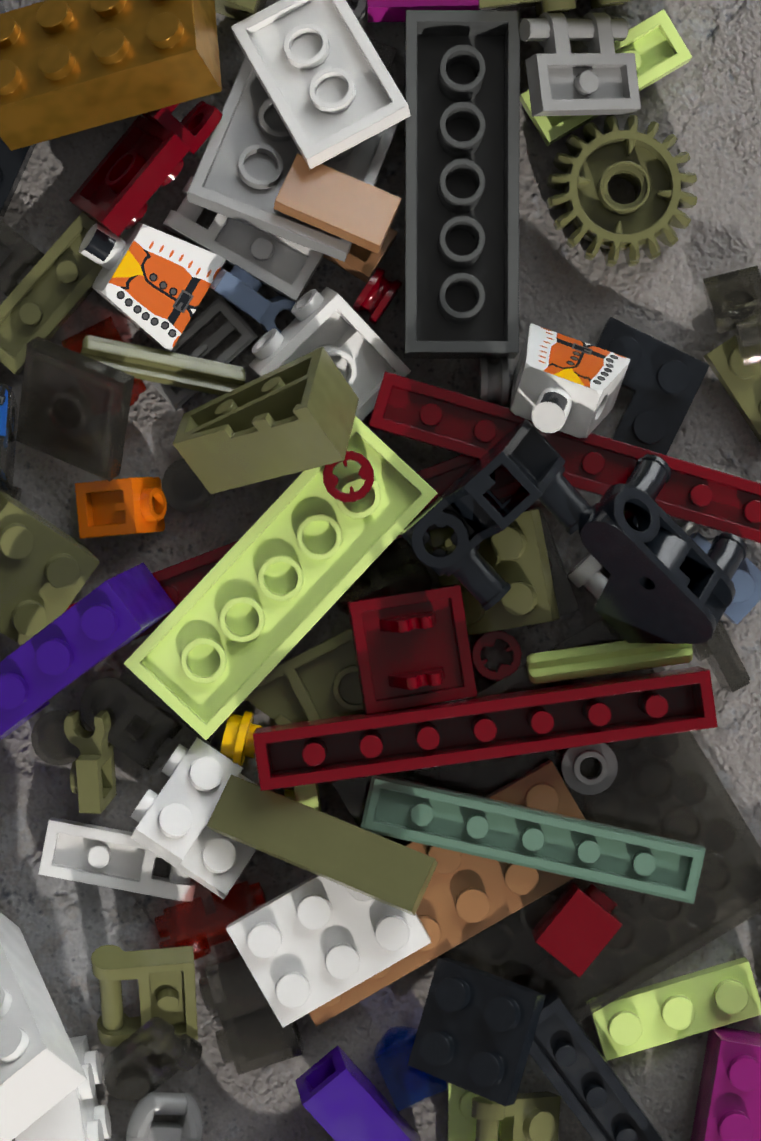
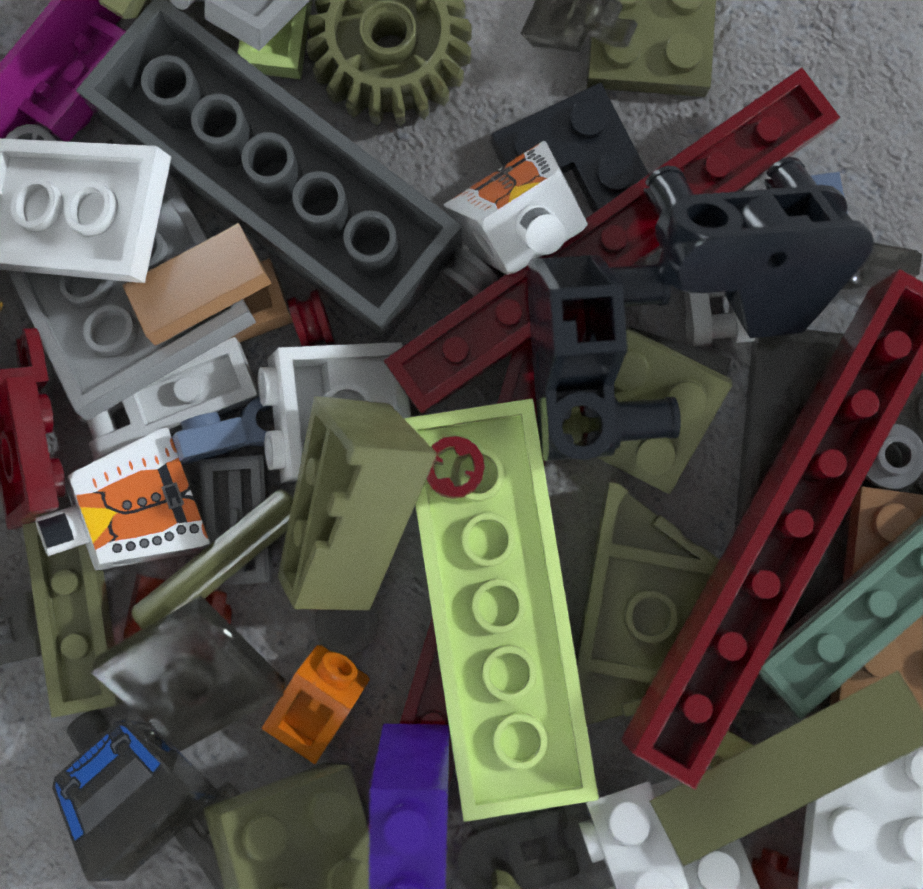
camera: 50 degrees left, 5 degrees down
(238, 737) = (616, 761): yellow plate -> none
(391, 573) = (576, 526): clear smoke plate -> none
(412, 649) = (659, 535): dark red plate -> none
(503, 669) = (733, 469): dark red bush -> none
(603, 660) = (799, 370): yellowish green axle -> none

